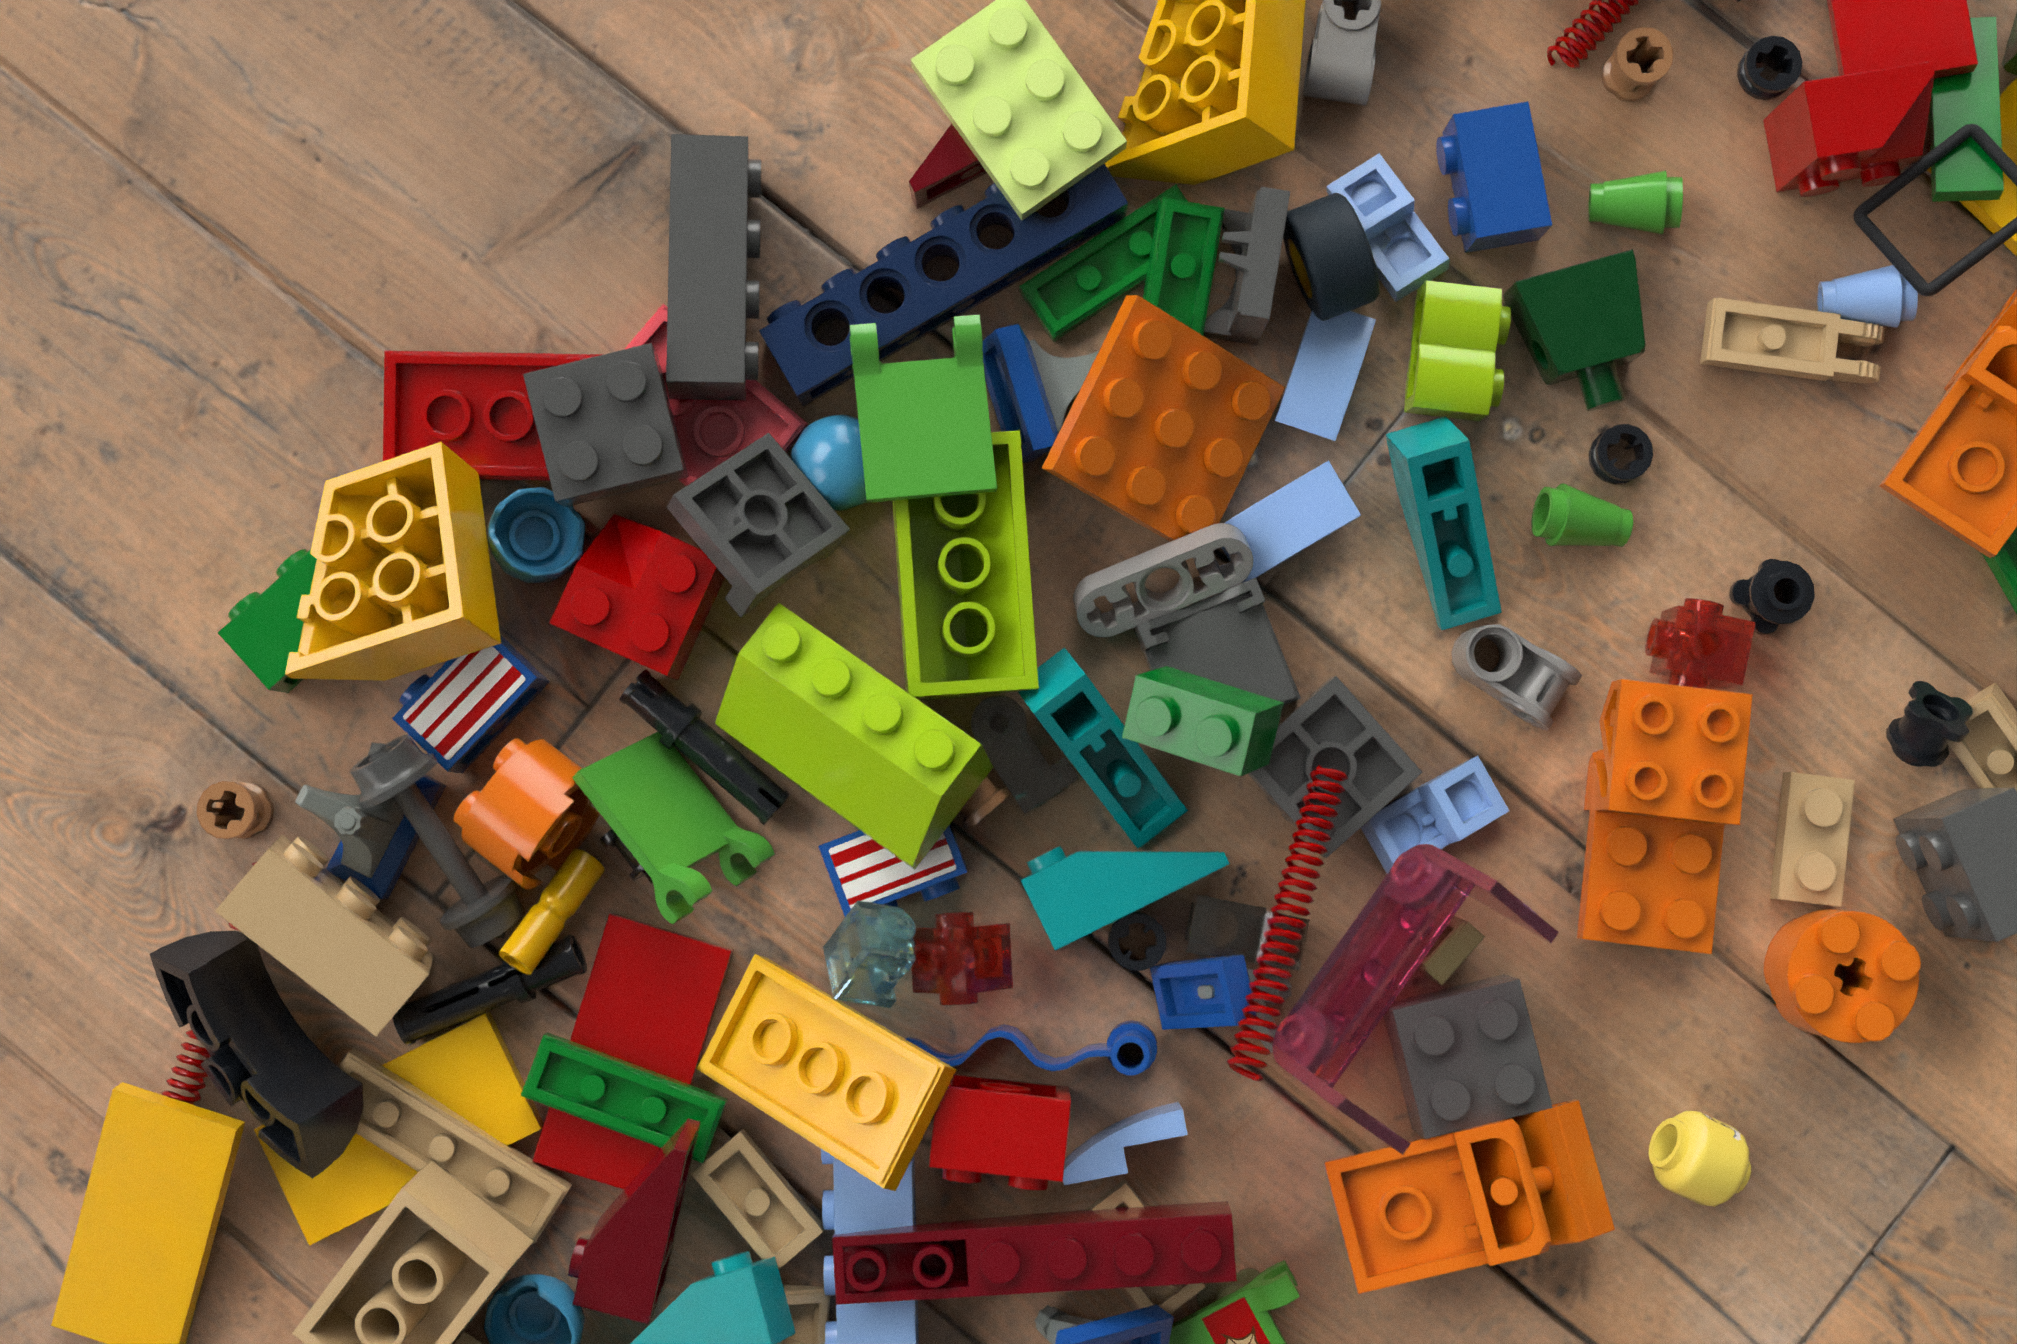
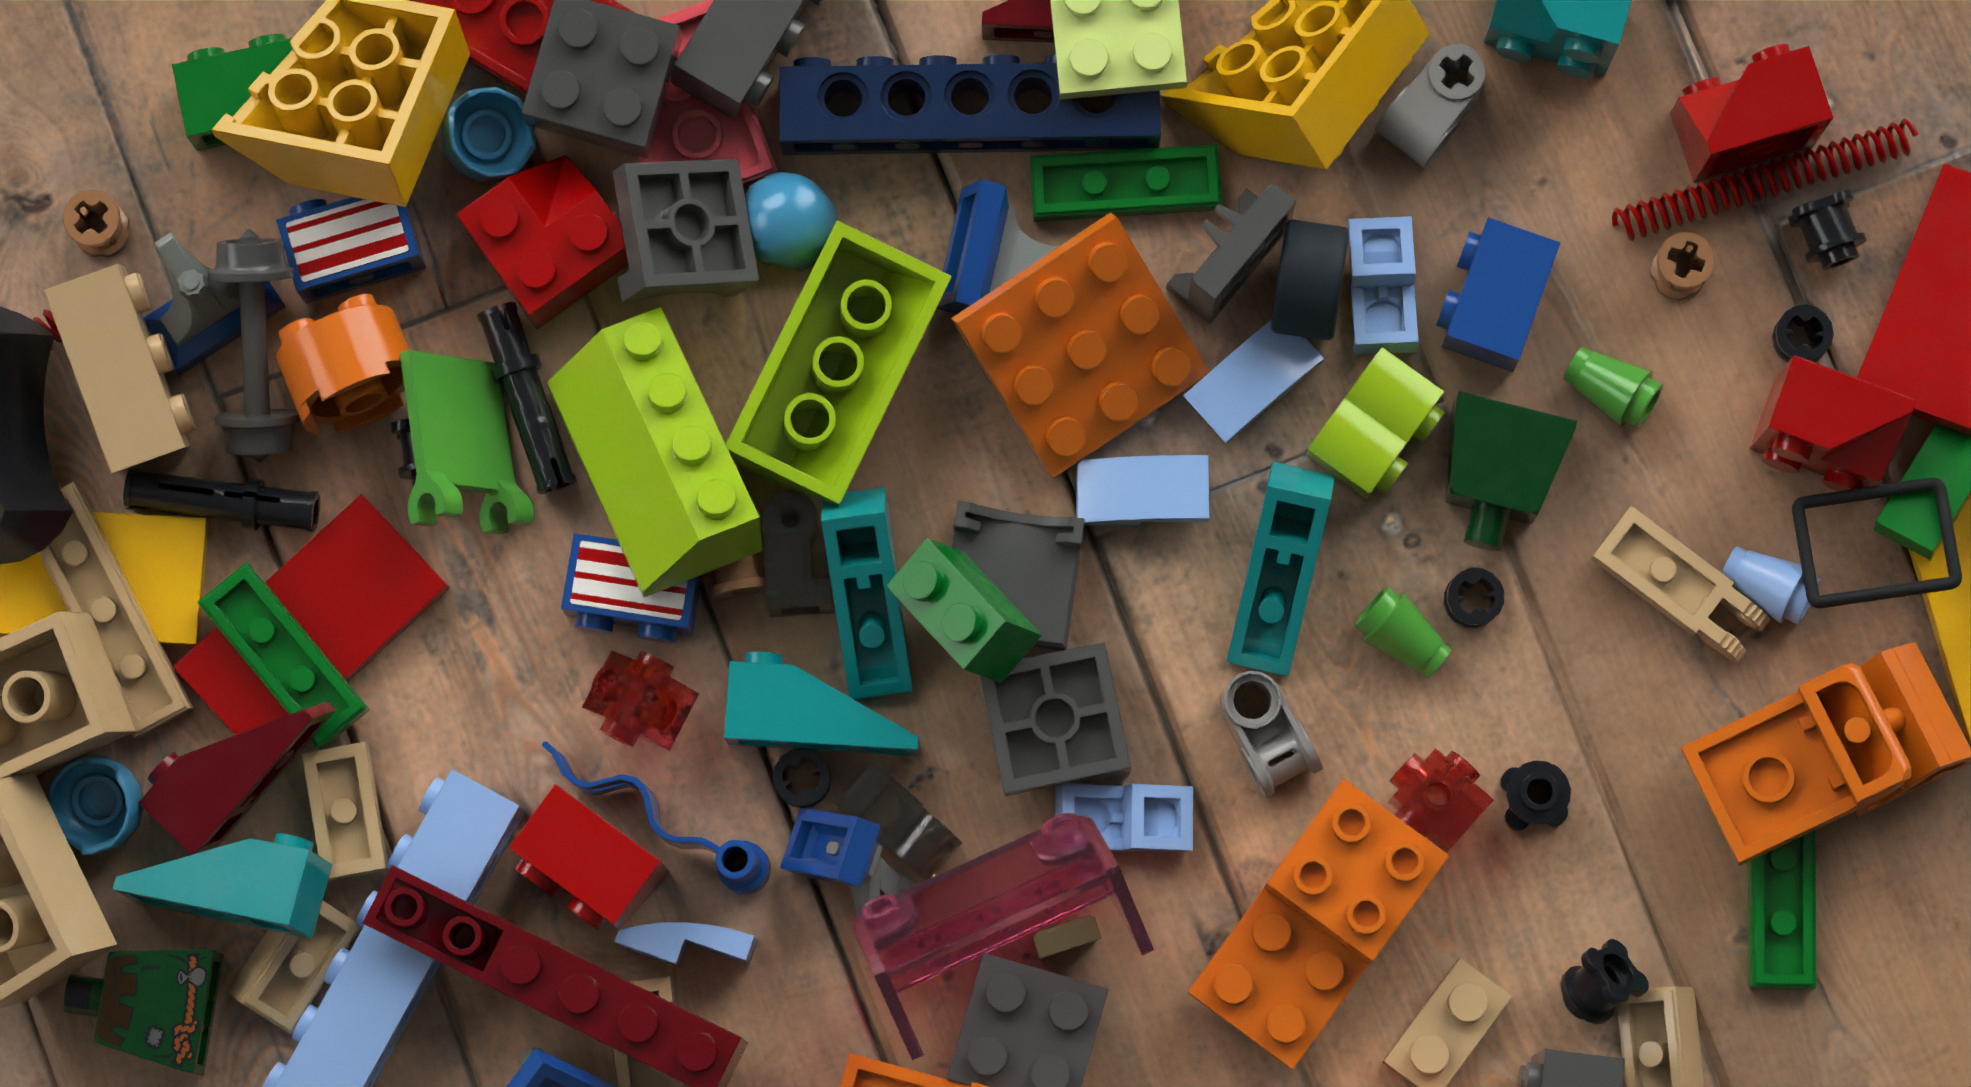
camera: 30 degrees right, 5 degrees down
(547, 917) = (308, 464): yellow piece -> none
(826, 1071) = (468, 725): yellow tile -> none
(870, 954) = (564, 650): clear light blue brick -> none
(923, 419) = (873, 220): bright green flag -> none
(1173, 555) = (1047, 501): light grey beam -> none
(1183, 260) = (1174, 218): green tile -> none
(1279, 918) = (936, 819): red piece -> none

